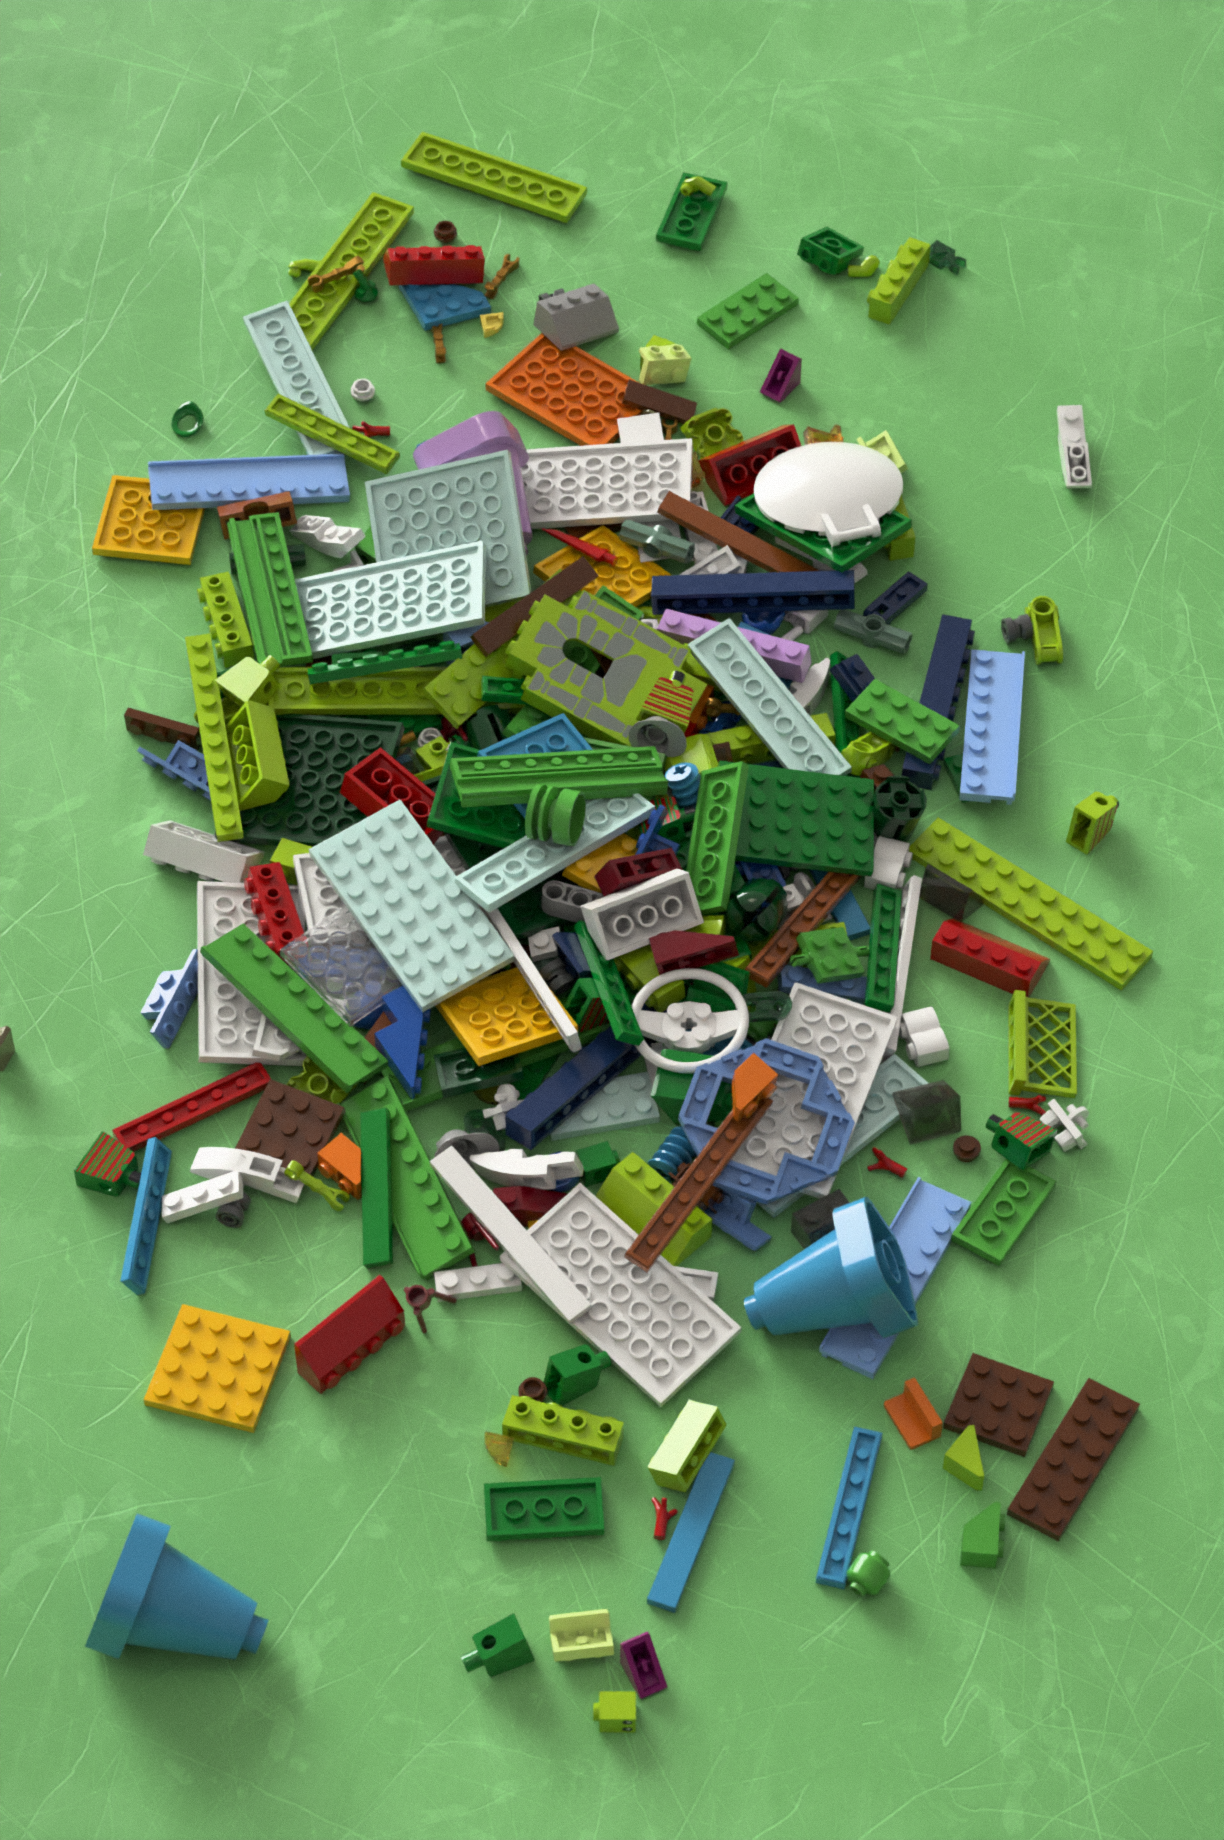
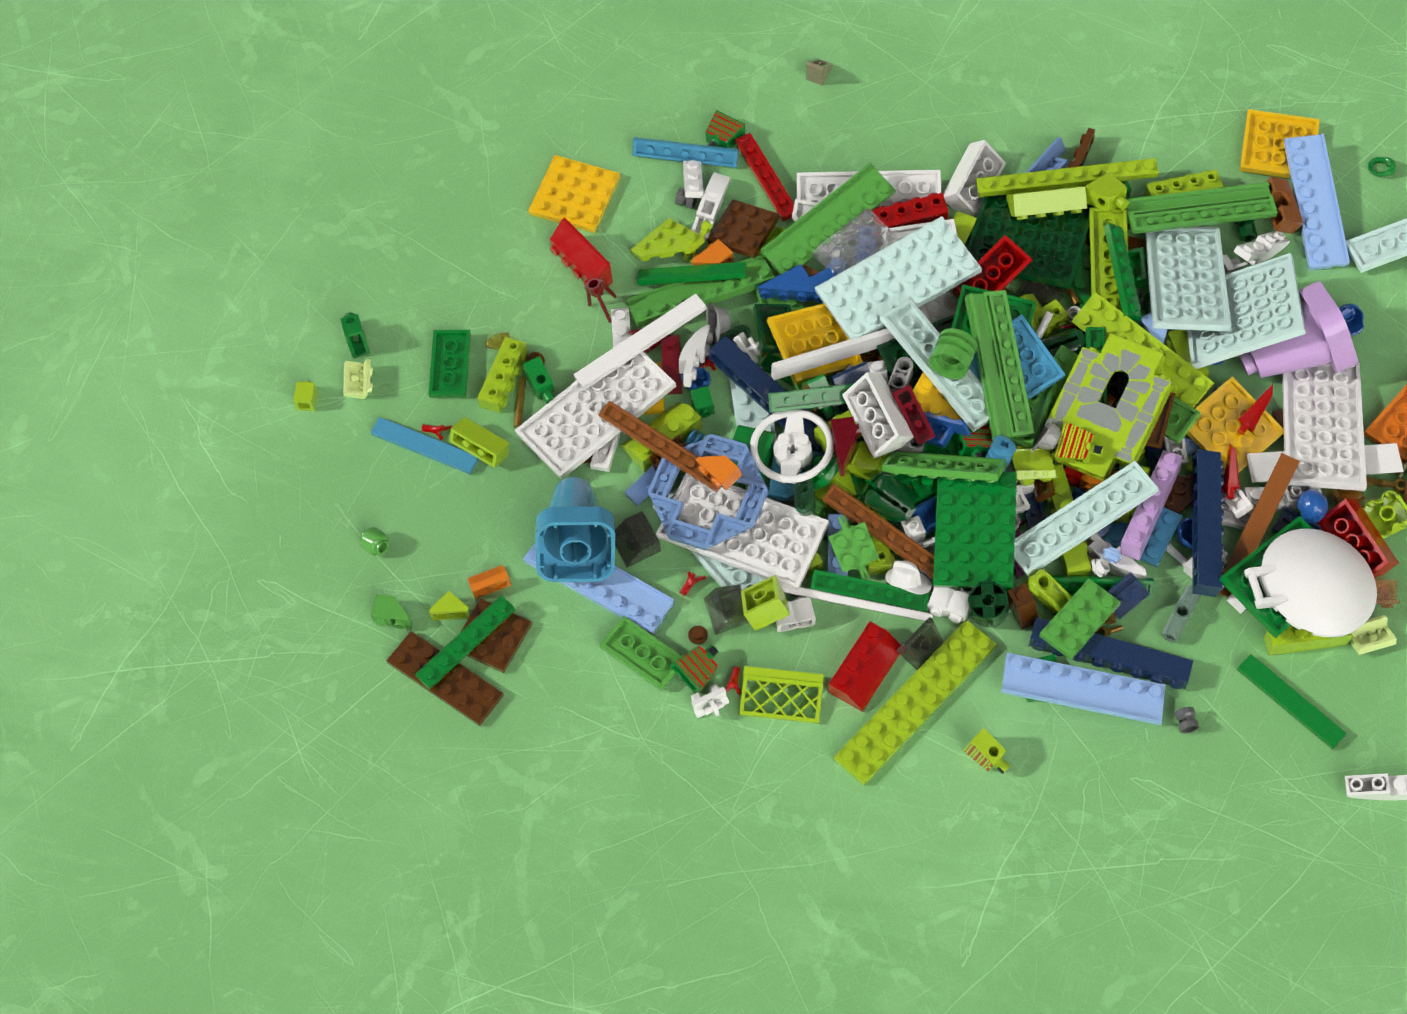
camera: 100 degrees right, 10 degrees up
(171, 1602) = (402, 156): dark azure cone -> none
(172, 1000) = (846, 161): medium blue bracket -> none
(316, 1224) = (666, 241): none -> lime plate
(332, 433) = (1366, 251): lime tile -> none
(371, 431) = (1379, 282): red bar -> none
(559, 587) = (1174, 363): reddish brown tile -> none
(610, 1407) = (520, 402): none -> pearl gold bar
(642, 1665) = (332, 411): magenta slope -> none
(657, 541) = (1260, 460): sand green piece -> none
(681, 567) = (1231, 475): none -> red bar
(717, 494) = (1312, 506): none -> blue hair
(810, 685) = (1112, 555): none -> light blue plate
(822, 704) = (1100, 567): none -> white plate
(849, 1508) = (430, 538): dark azure tile -> none
(860, 906) = (907, 577): none -> white piece
(897, 597) = (1216, 634): dark blue plate -> none
(922, 1054) = (764, 603): none -> lime slope
(974, 535) = (1291, 701): none -> green tile
(1022, 1426) = (465, 642): none -> green plate
(1046, 631) = (1183, 741): lime piece -> none

